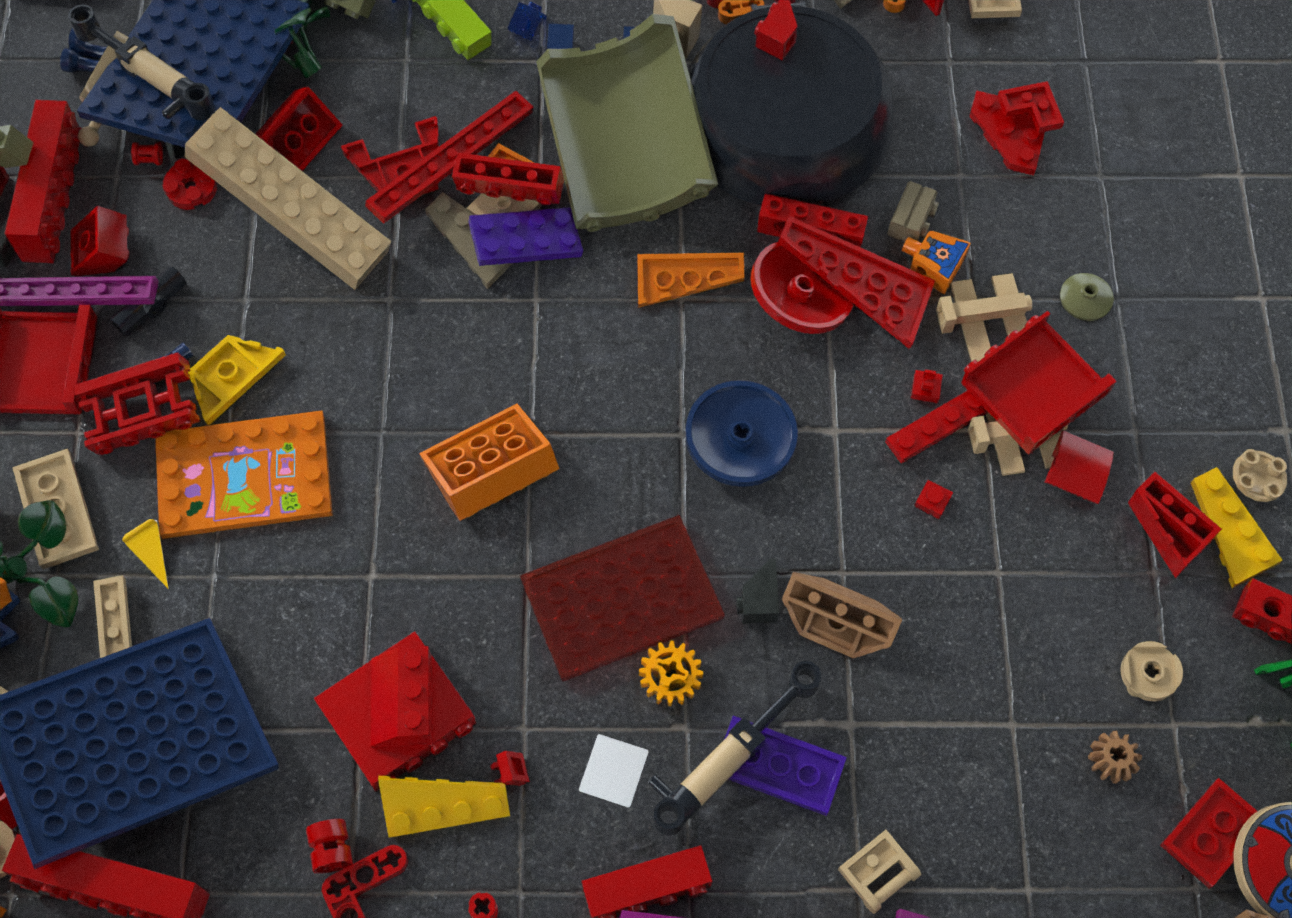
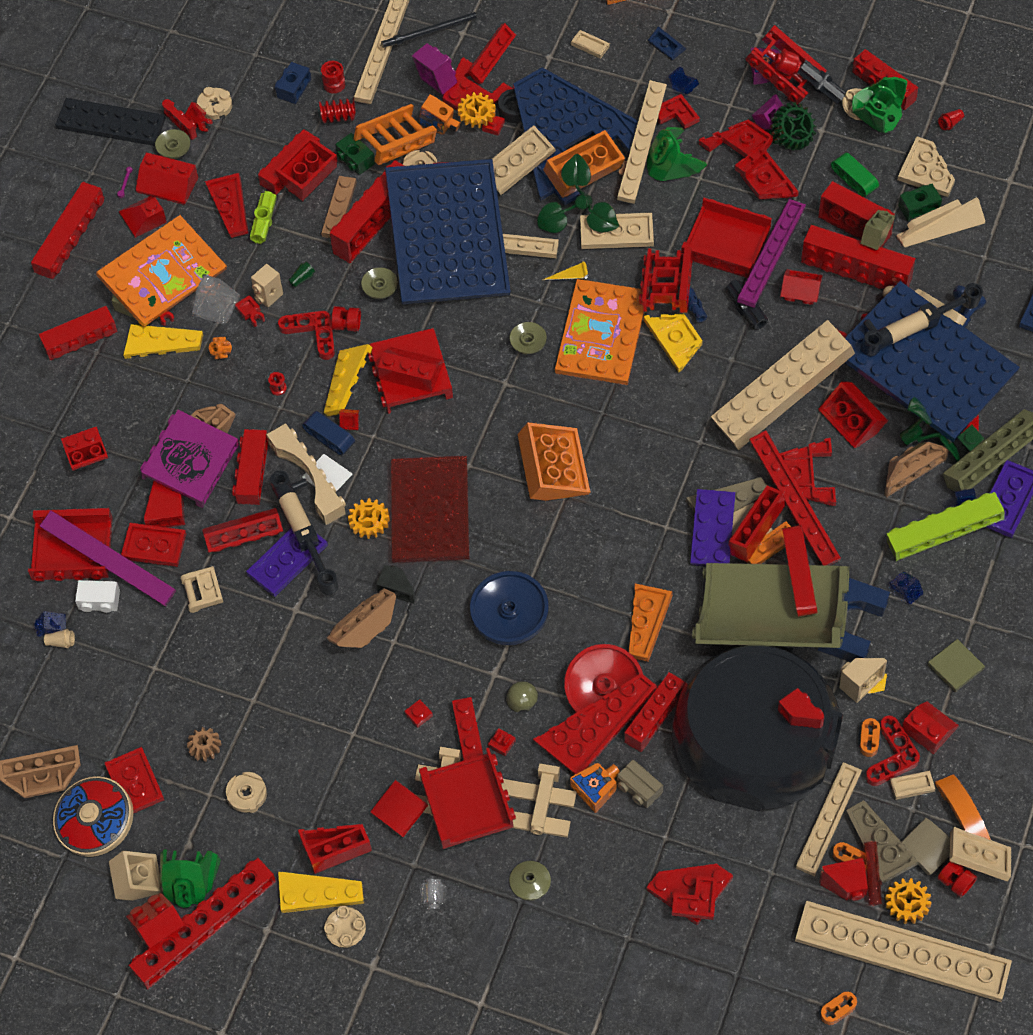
camera: 115 degrees right, 5 degrees down
(234, 812) = (379, 277): none -> olive dish
(280, 554) = (525, 332): none -> olive dish
(357, 53) = (913, 464): none -> medium nougat wedge
(545, 791) = (328, 433): none -> dark blue beam
(565, 107) = (799, 571): none -> red beam
(665, 746) = (286, 446): none -> tan arch
(765, 846) = (242, 530): none -> red brick
(854, 383) = (521, 696): none -> olive hair
(887, 24) = (828, 819): none -> tan tile
(1166, 388) = (433, 893): none -> clear head

